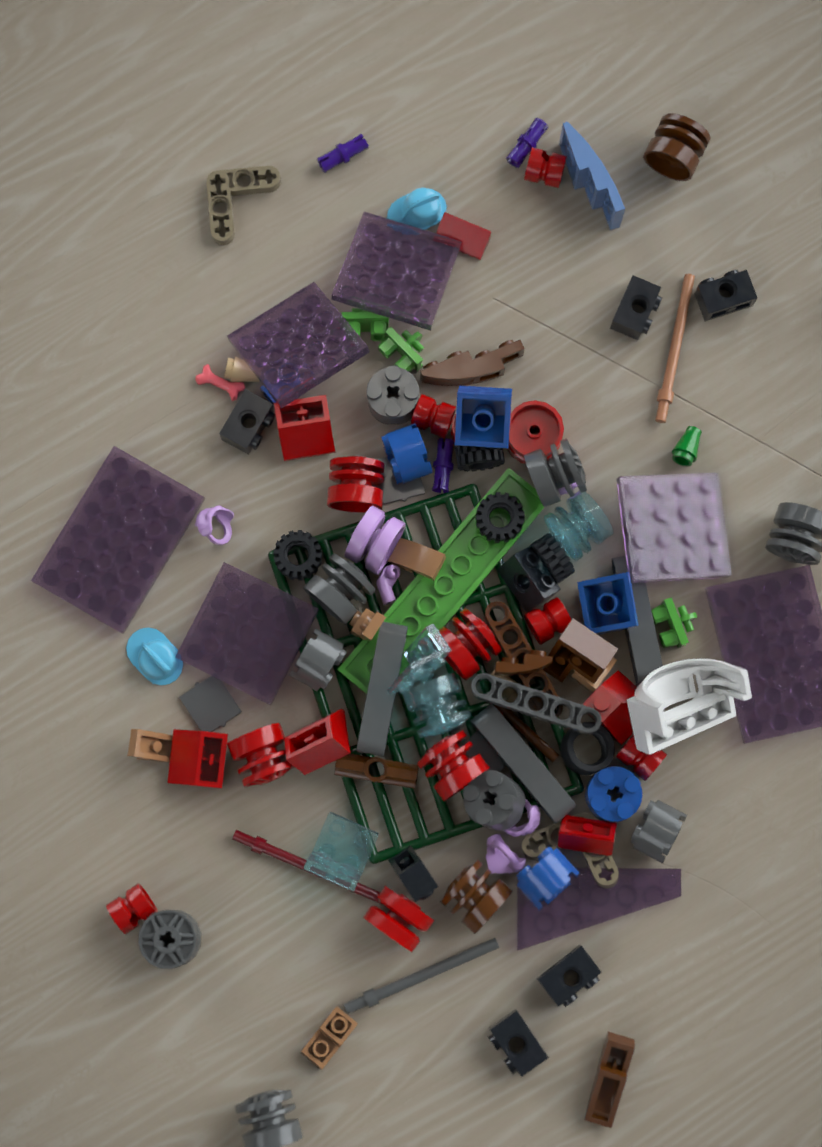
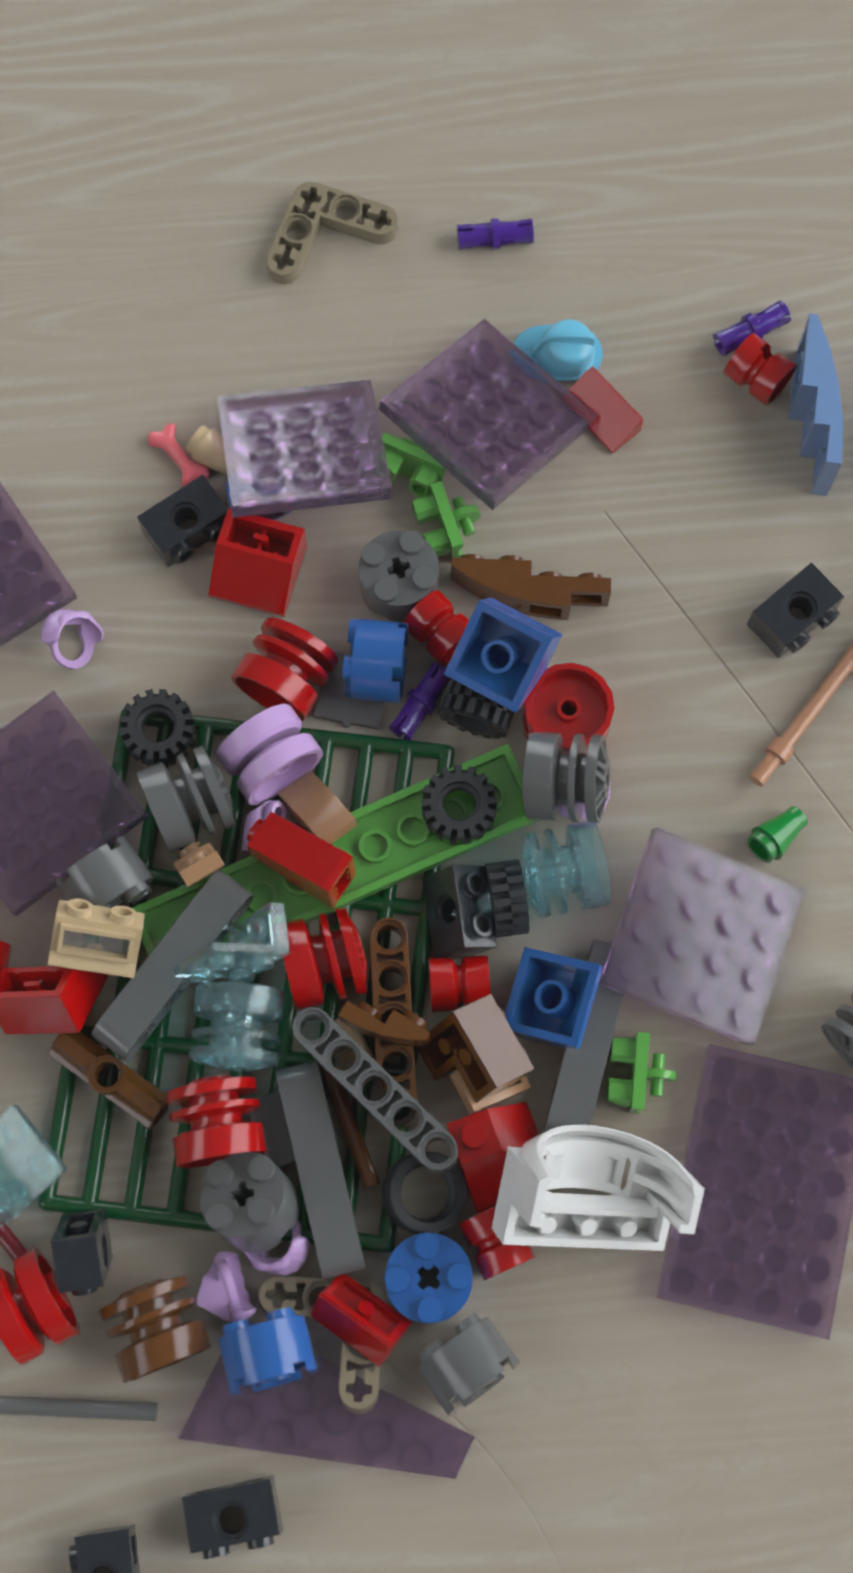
camera: 25 degrees right, 5 degrees down
(333, 694) = (96, 938): none -> tan window
(425, 592) = (302, 858): none -> red slope

